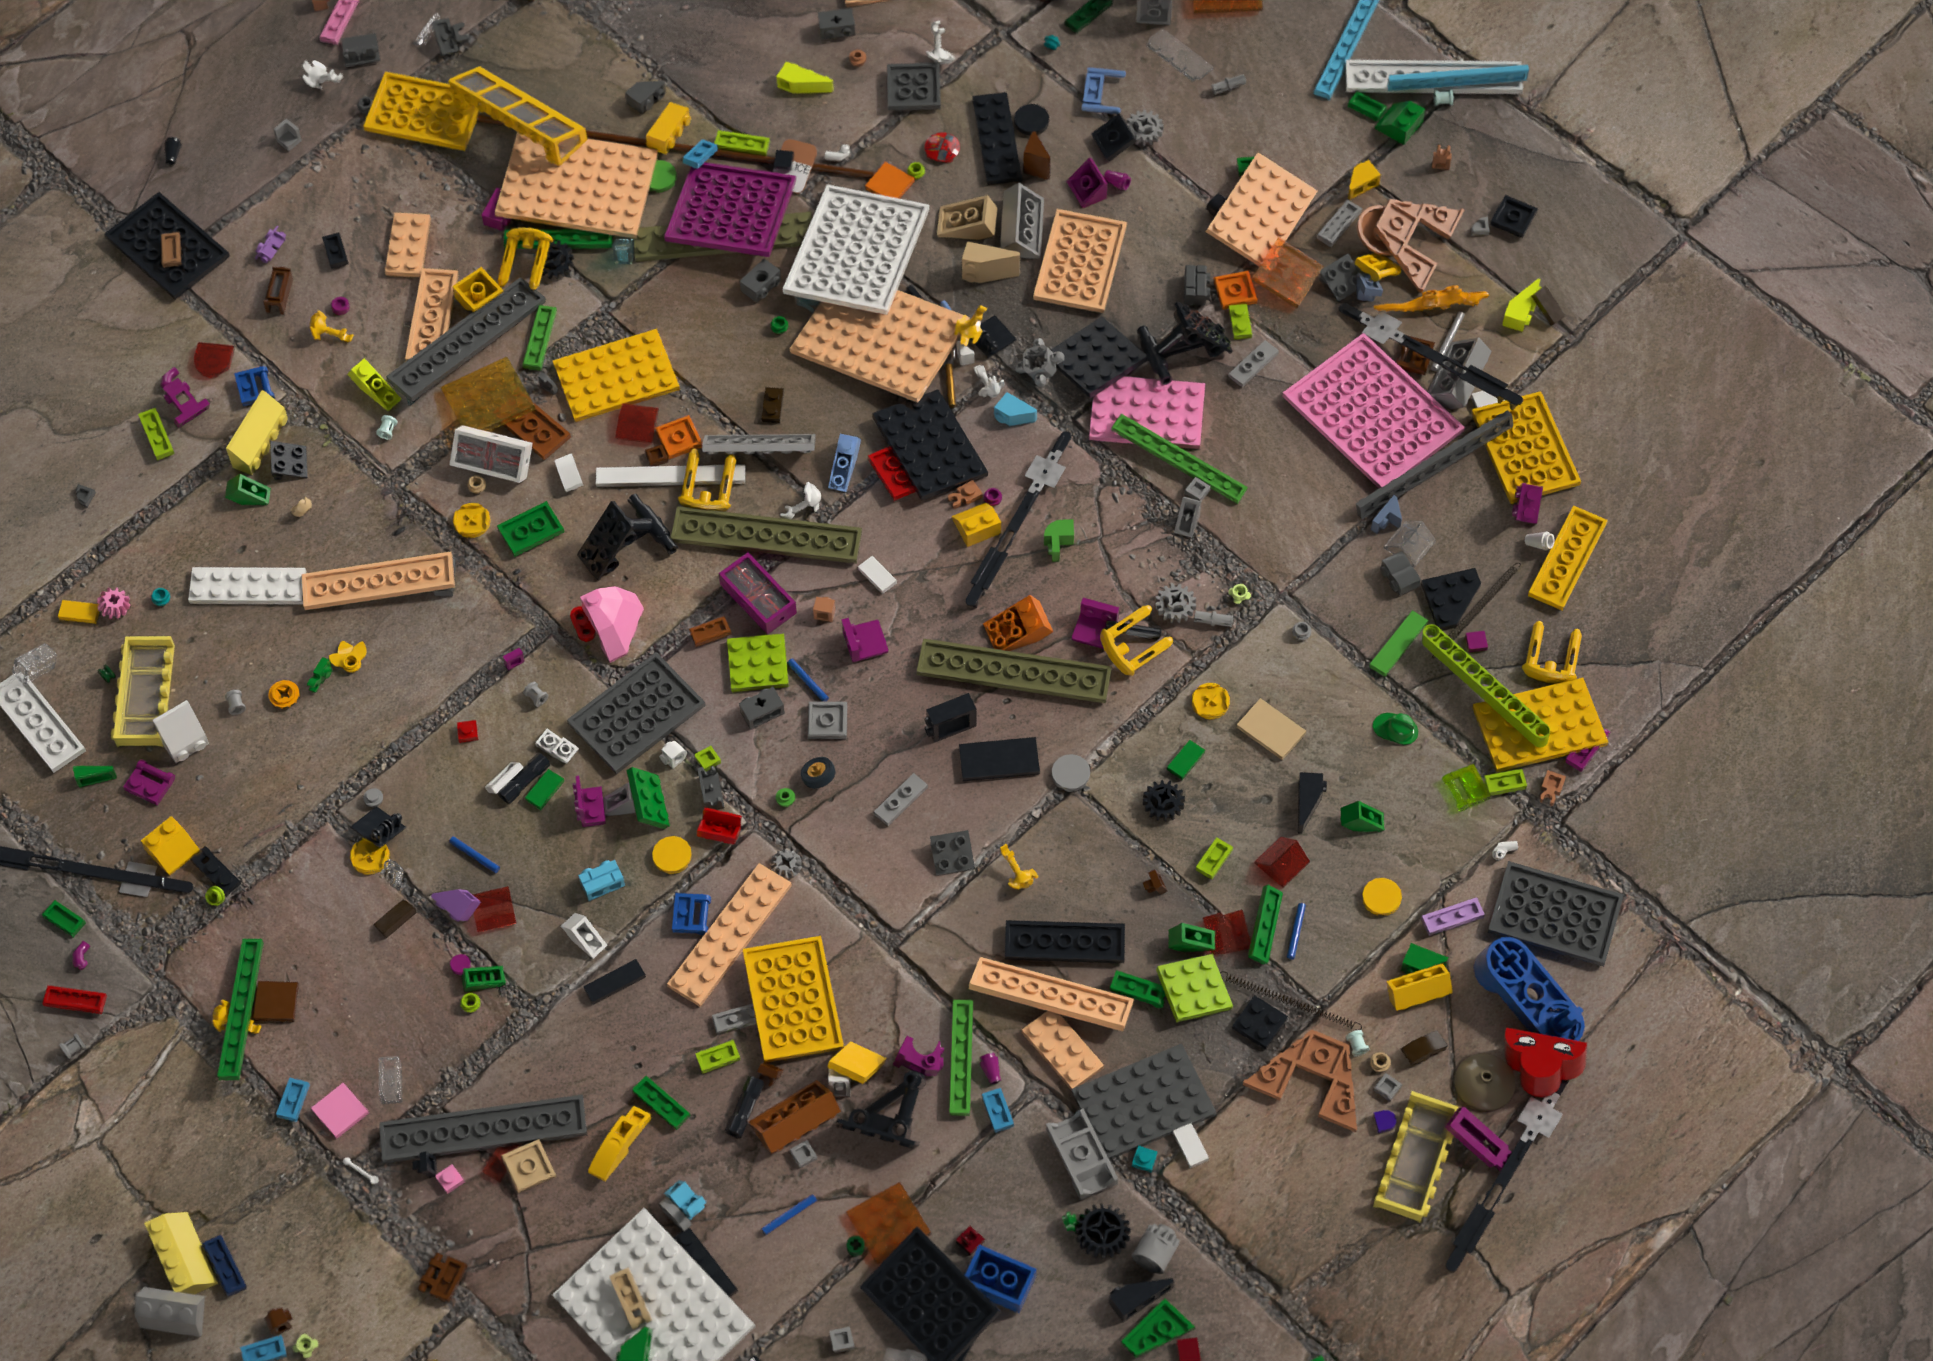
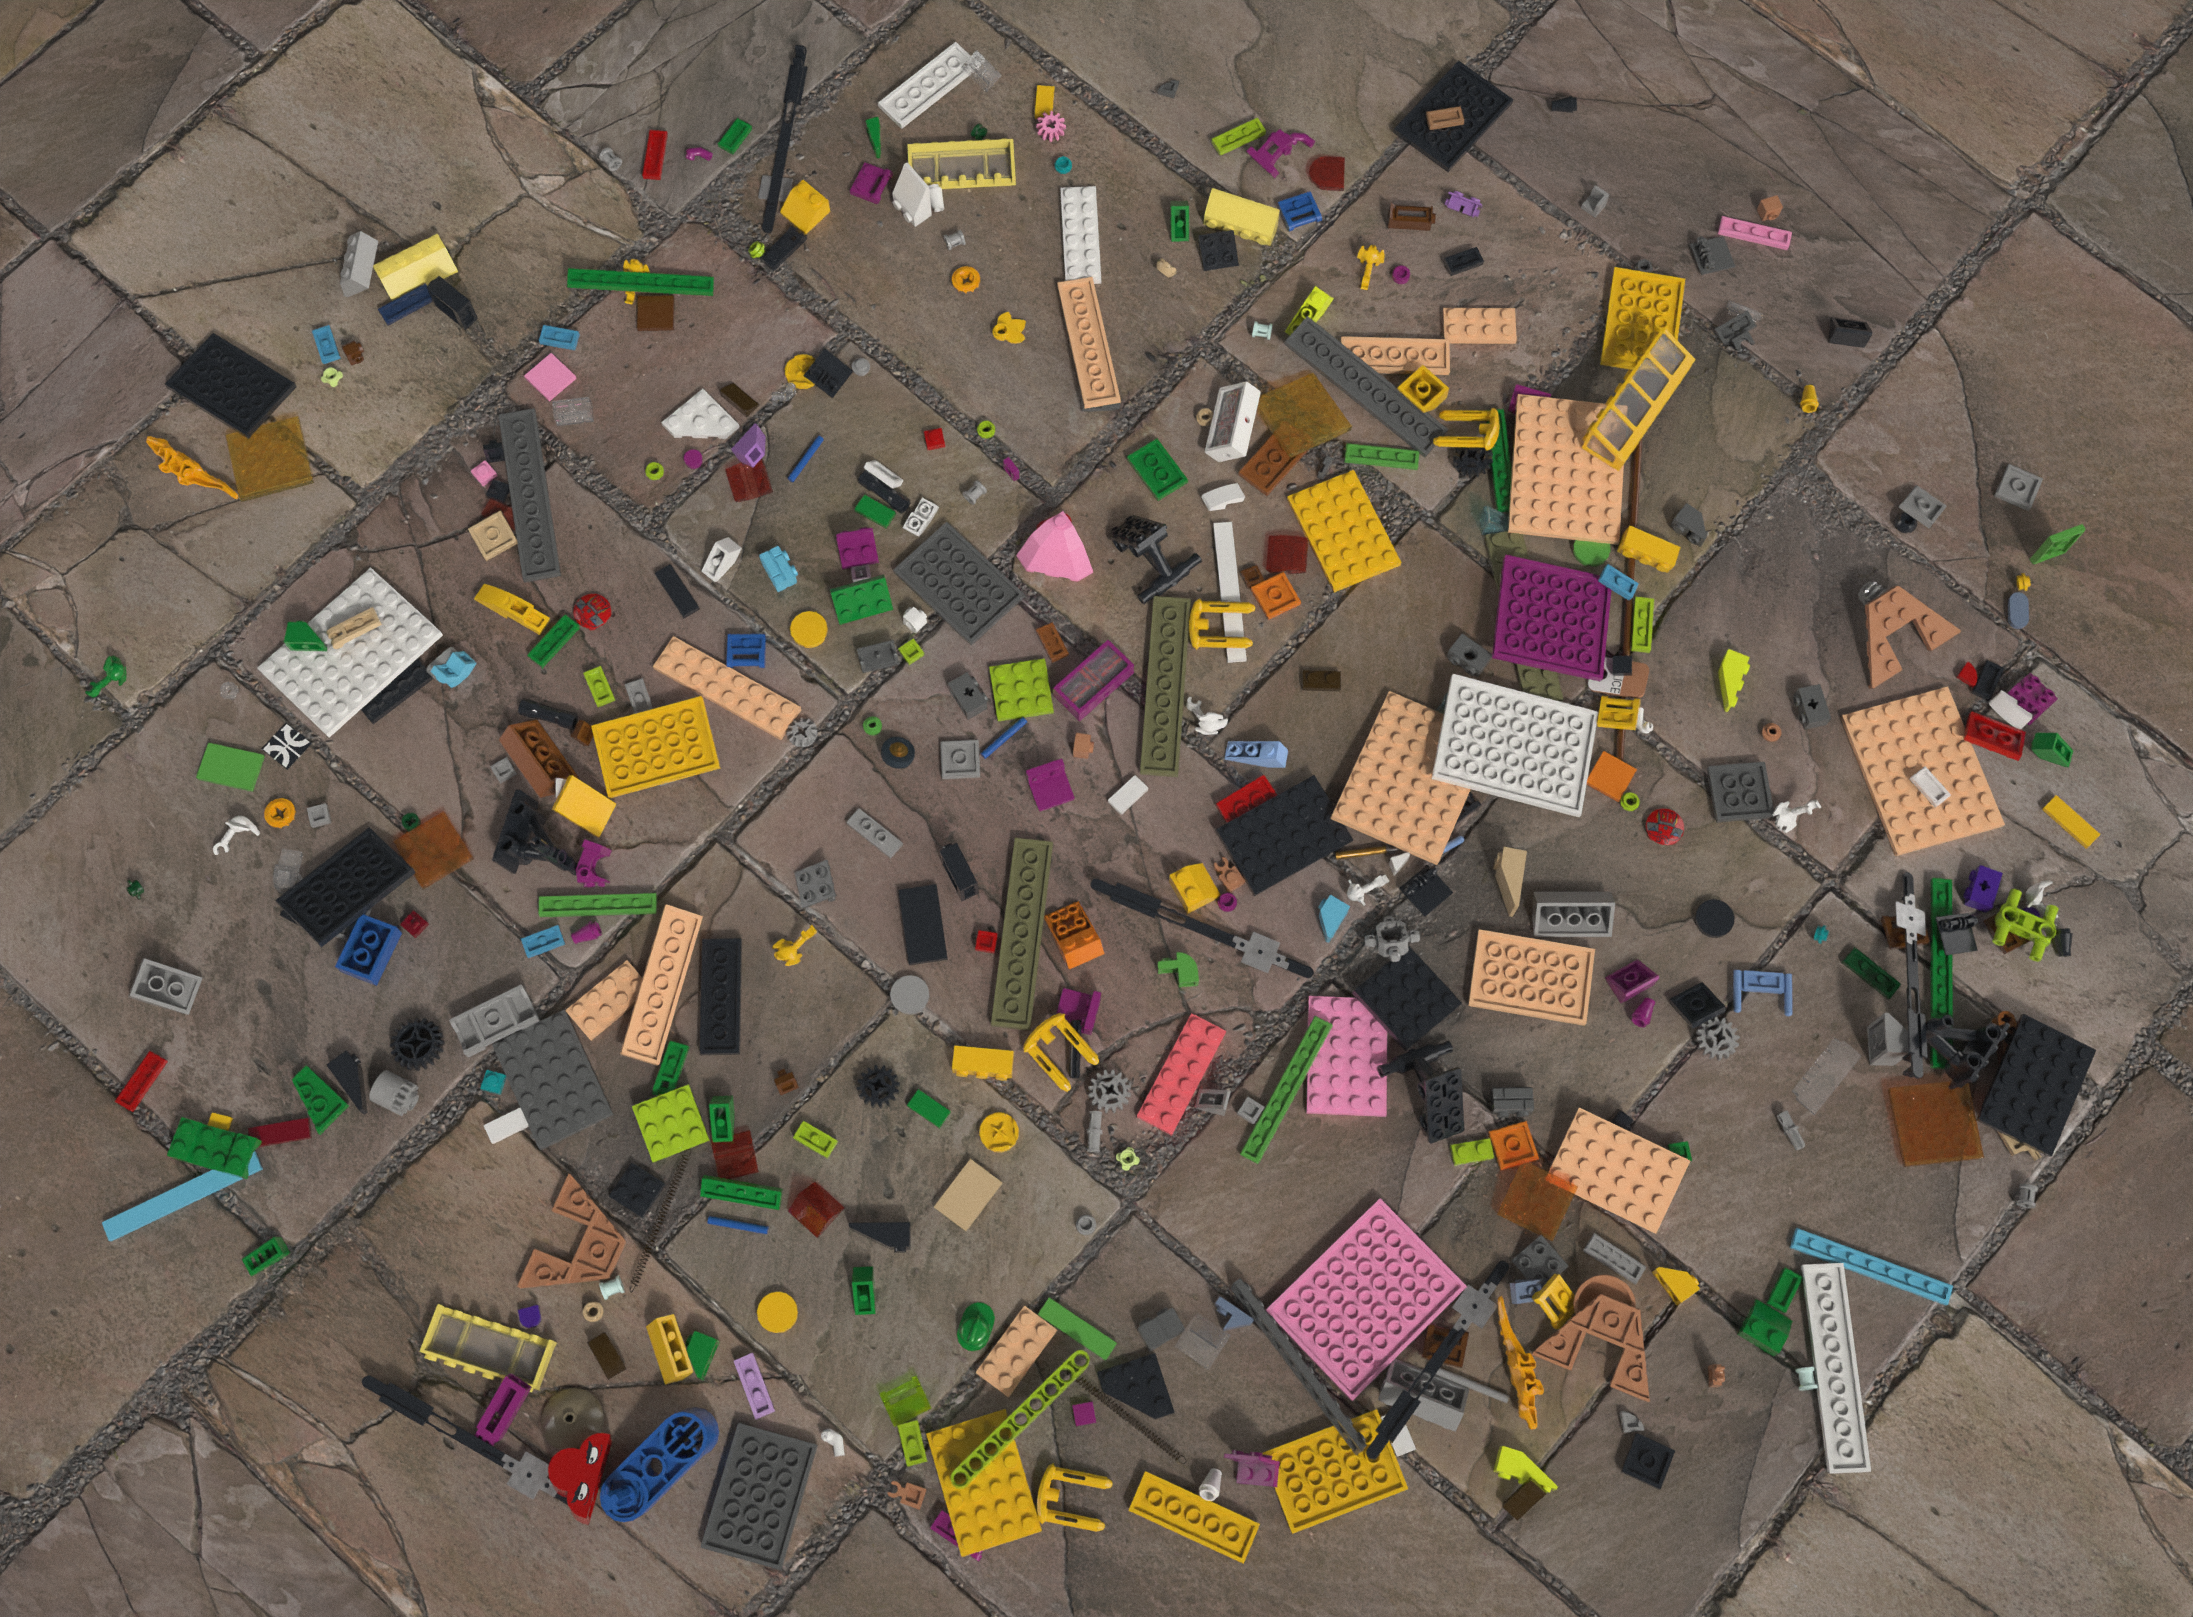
camera: 85 degrees right, 10 degrees up
(235, 1207) = (452, 302): none -> black window
(318, 74) = (1672, 218): white piece -> none
(321, 672) = (987, 306): green plate -> none
(373, 1179) = (485, 413): white hinge -> none
(413, 956) = (700, 419): none -> white plate
(447, 1280) = (388, 481): reddish brown plate -> none
(461, 678) = (986, 425): none -> lime plate
(471, 520) = (1165, 417): yellow tile -> none
(473, 1163) = (498, 491): none -> black tile
(482, 972) = (675, 465): green slope -> none
(628, 1065) = (592, 611): none -> red dish
(719, 826) = (836, 668): red bracket -> none
(767, 443) = (1268, 668): light grey plate -> none
(779, 325) = (1418, 679): green plate -> none
(789, 1214) = (444, 762): blue bar -> none
(835, 168) = (1618, 717): none -> yellow plate
(968, 219) = (1570, 857): tan slope -> none
(968, 329) = (1421, 861): yellow piece -> none
(997, 138) = (1684, 883): black plate -> none
(1021, 702) = (986, 941): none -> red plate
(1036, 158) = (1656, 920): reddish brown slope -> none
(1070, 1221) = (428, 1012): green plate -> none
(1143, 709) = (982, 1062): none -> yellow brick
(1159, 545) = (1181, 1074): none -> coral plate
(1253, 363) = (1418, 1167): light grey plate -> none
(1387, 1087) = (567, 1319): light grey tile -> none
(1419, 694) = (1016, 1351): none -> light nougat plate
(1457, 78) = (1830, 1393): medium azure tile -> none

